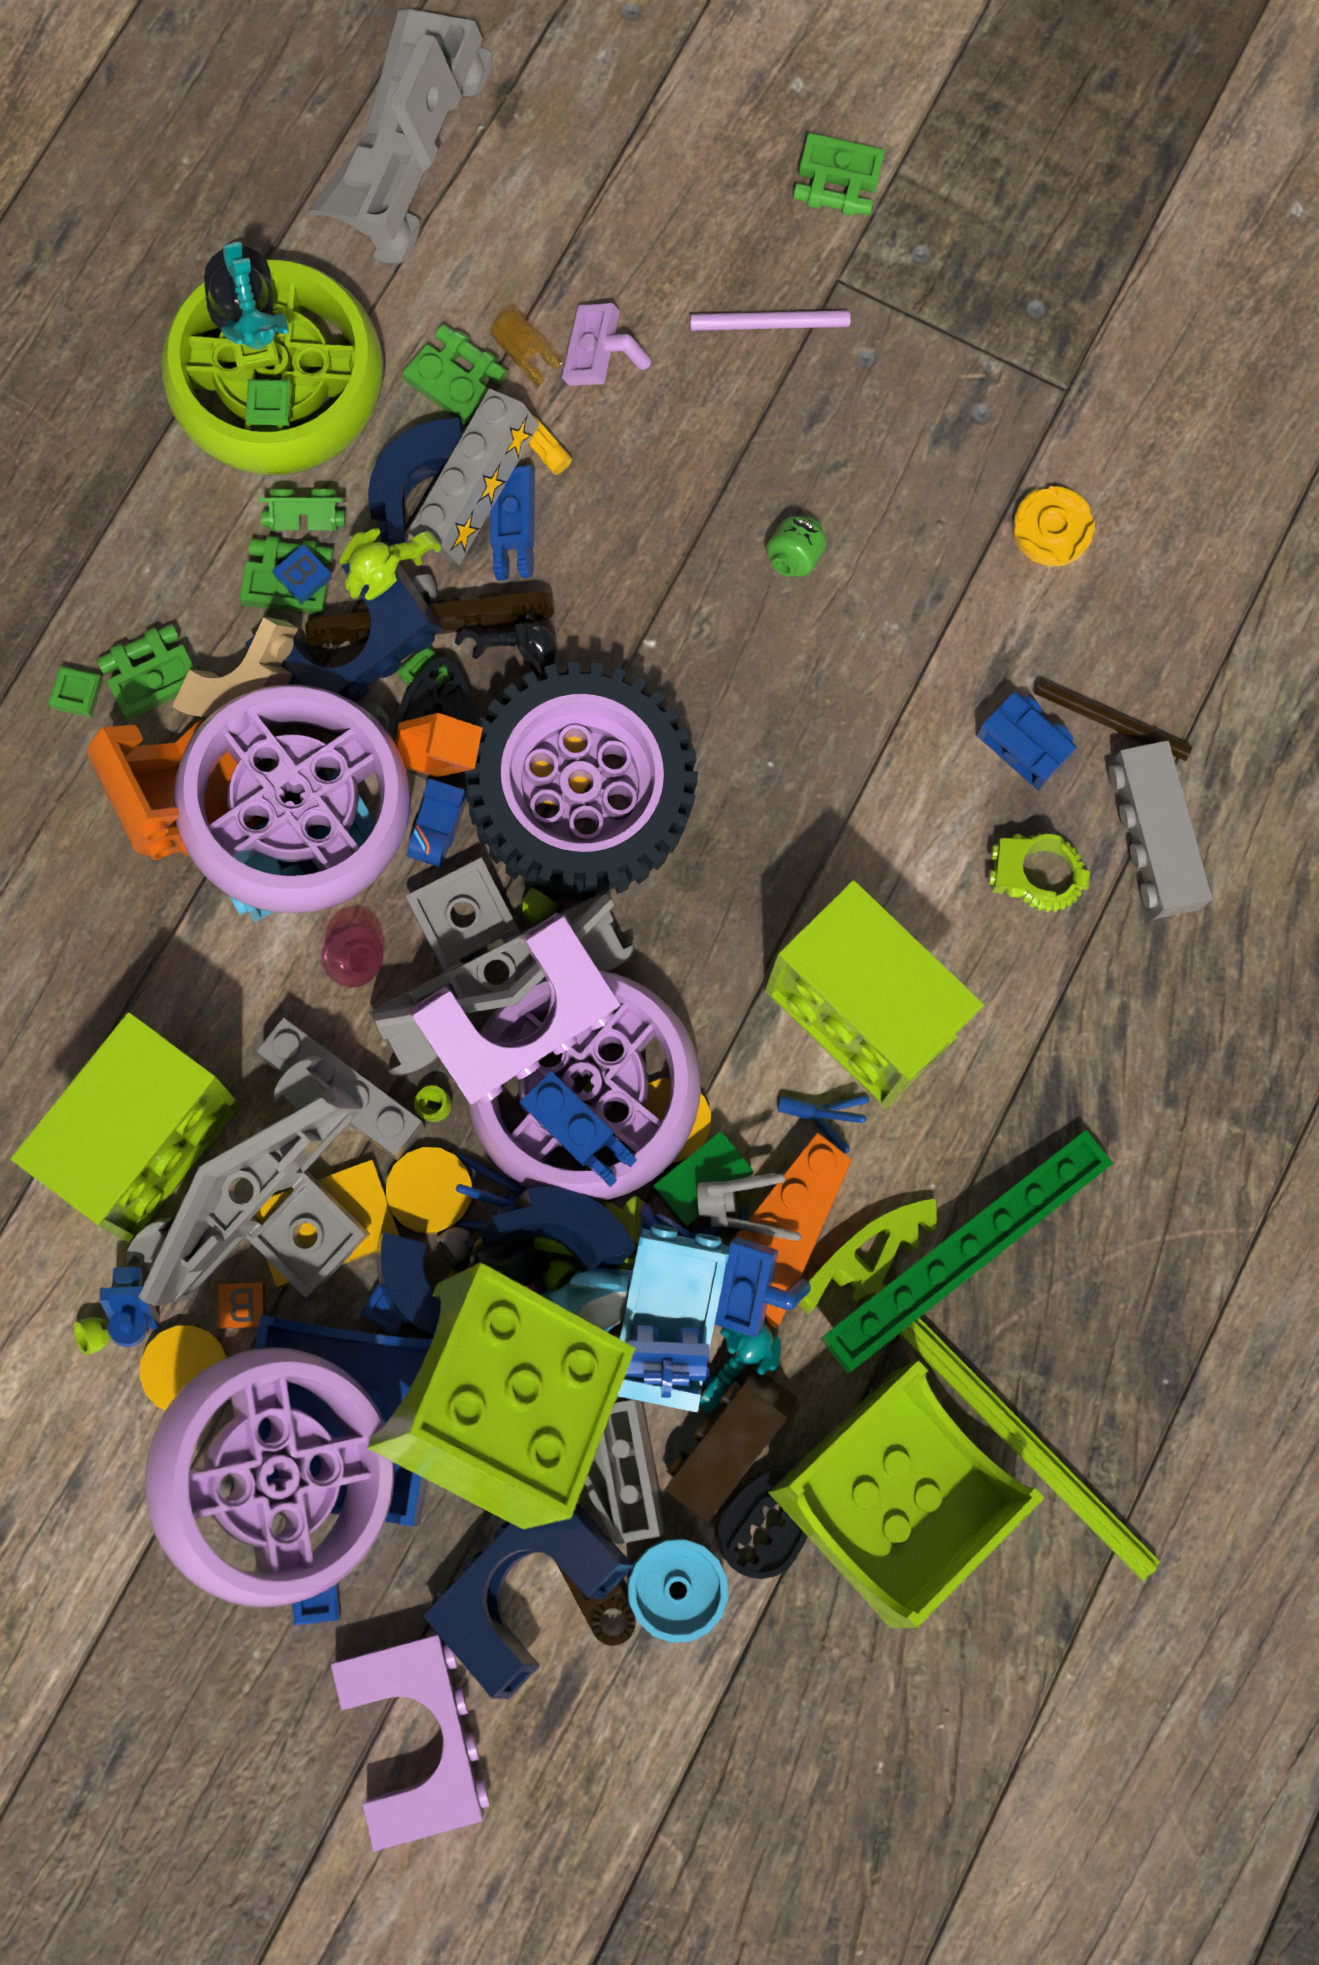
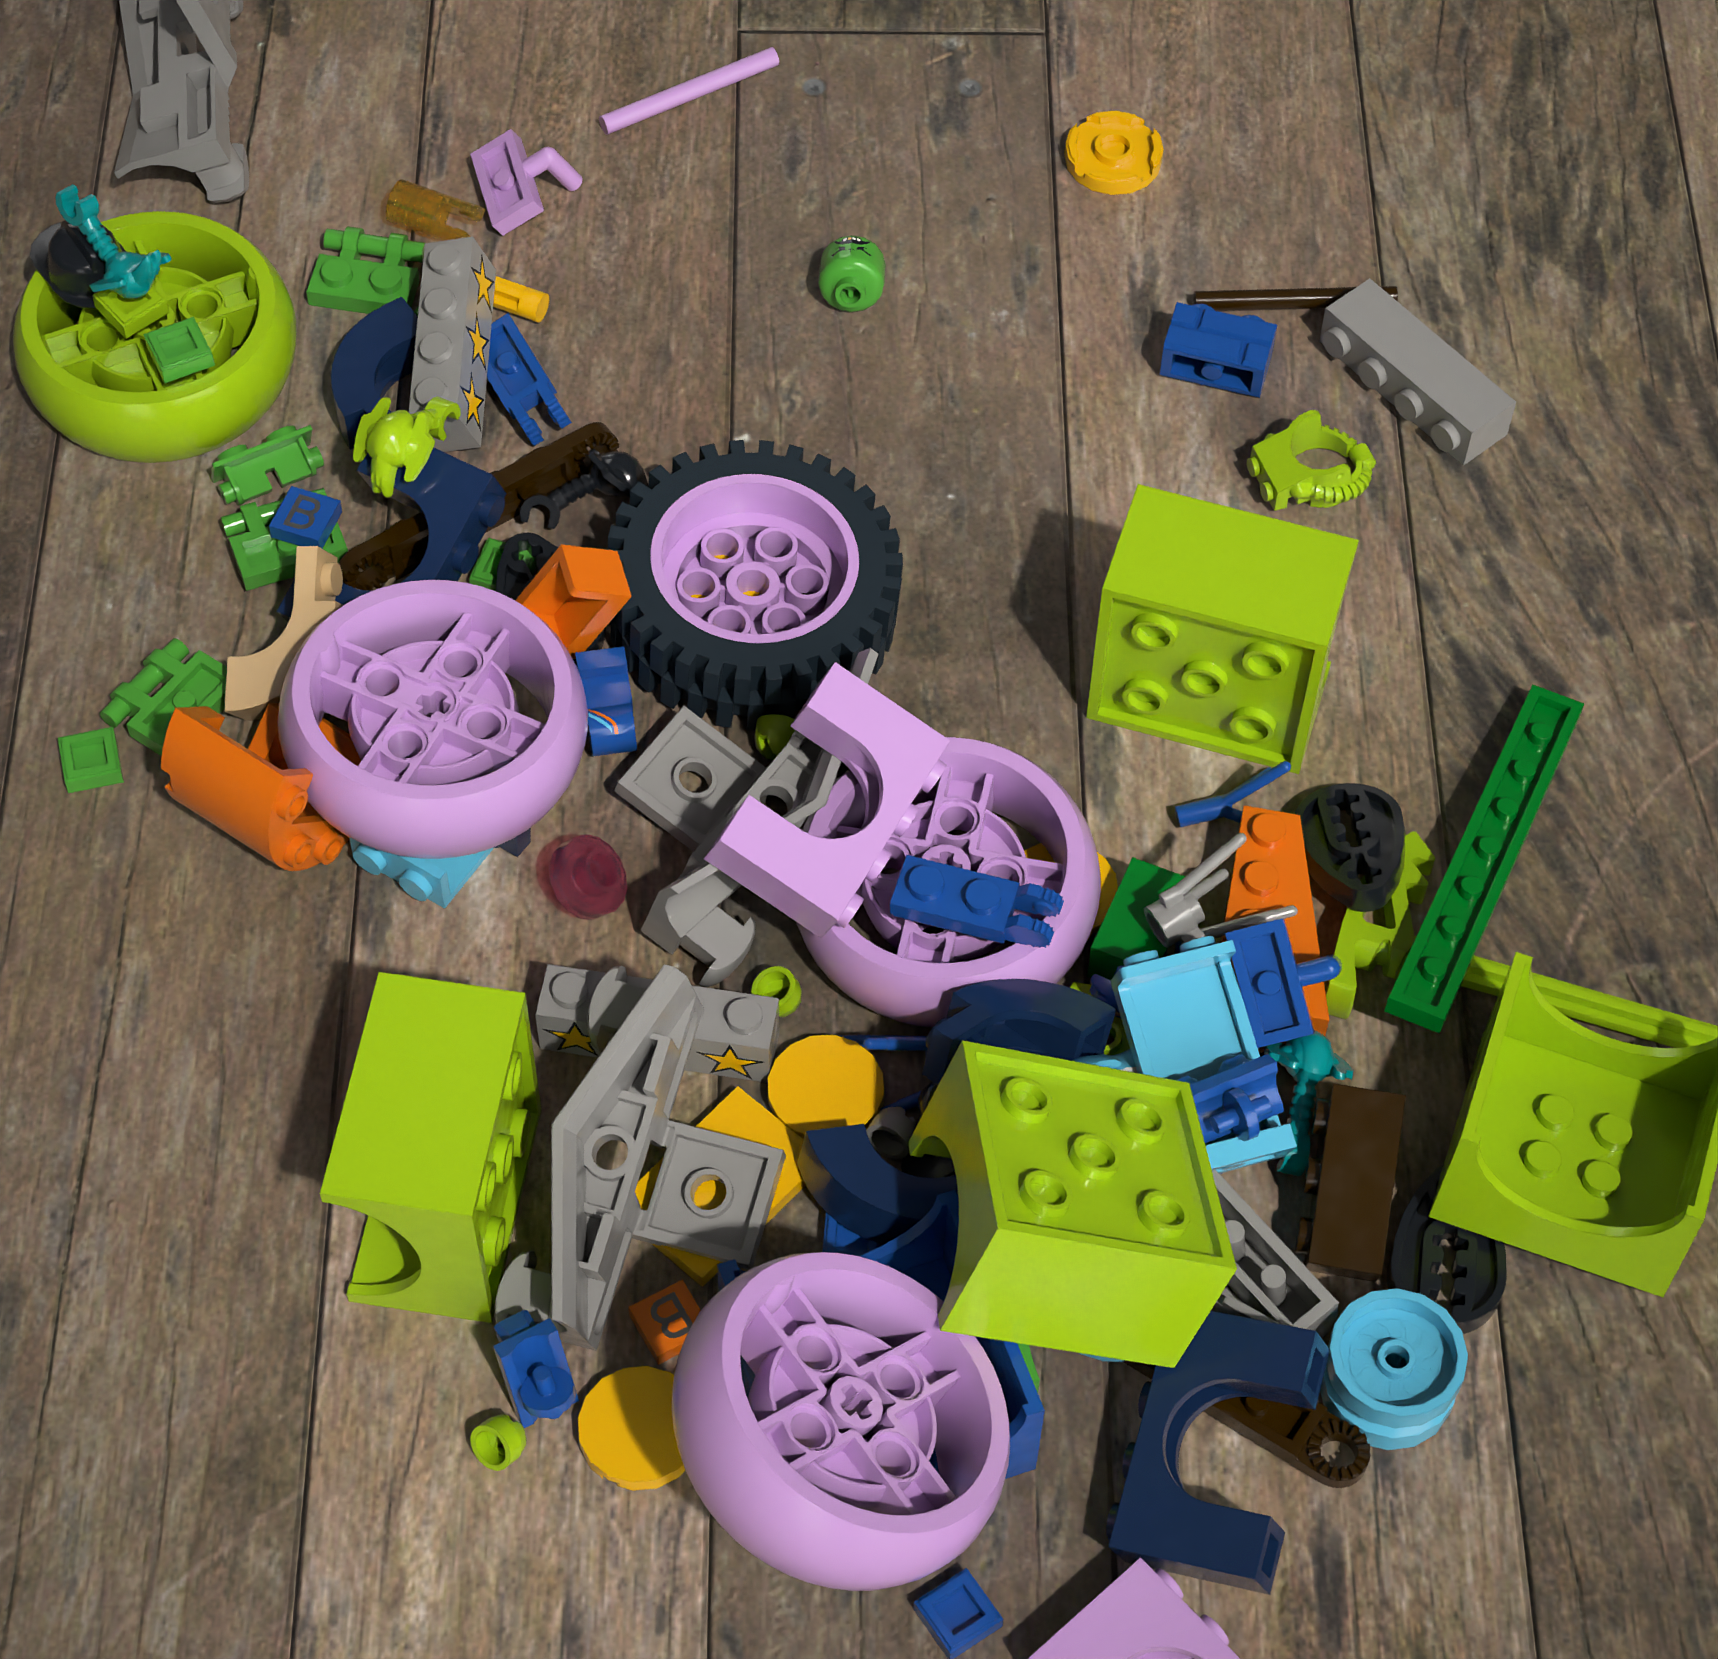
camera: 20 degrees left, 20 degrees down
(903, 1197) = (1379, 839): none -> black piece

